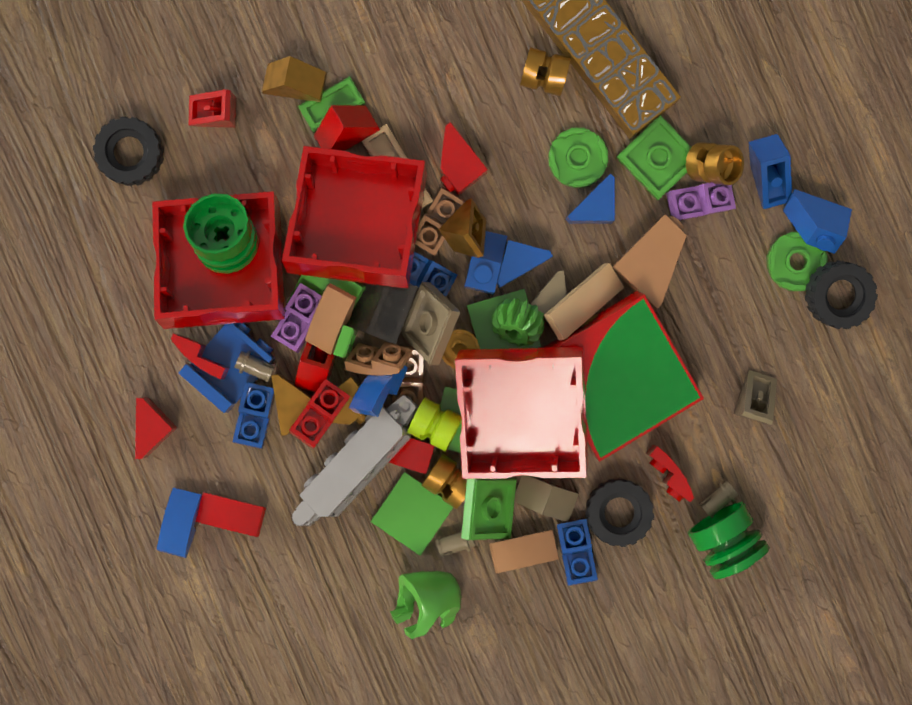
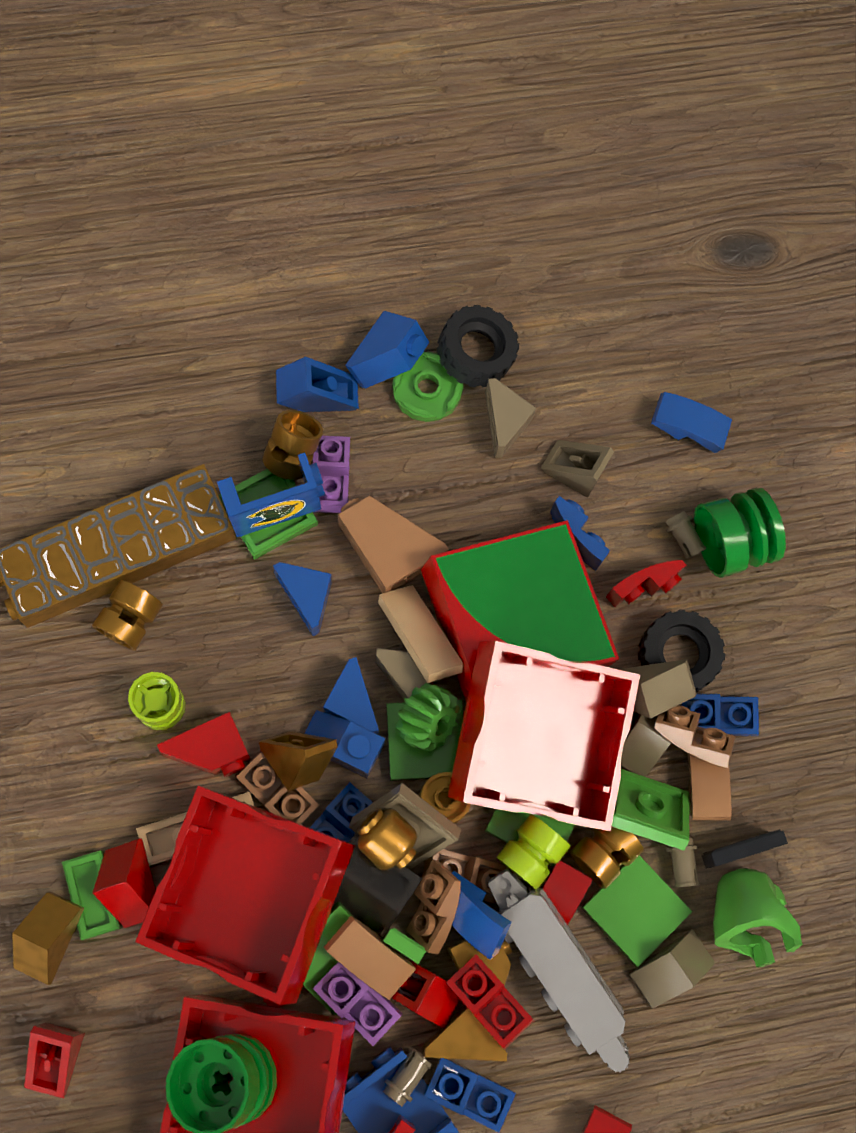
camera: 85 degrees left, 15 degrees down
(375, 549) = (673, 969): none -> dark tan slope
(417, 311) = (387, 839): none -> pearl gold head
(476, 587) = (744, 848): none -> black tile
(483, 112) = (157, 701): none -> lime wheel
(555, 522) = (682, 729): none -> medium nougat slope
(578, 157) = (242, 603): bright green tile -> none
(585, 497) = (662, 687): none -> dark tan slope
(641, 141) = (275, 507): none -> blue panel
(690, 421) = (589, 544): none -> blue slope
(784, 333) = (507, 416): none -> dark tan slope
(820, 486) = (689, 418): none -> blue slope

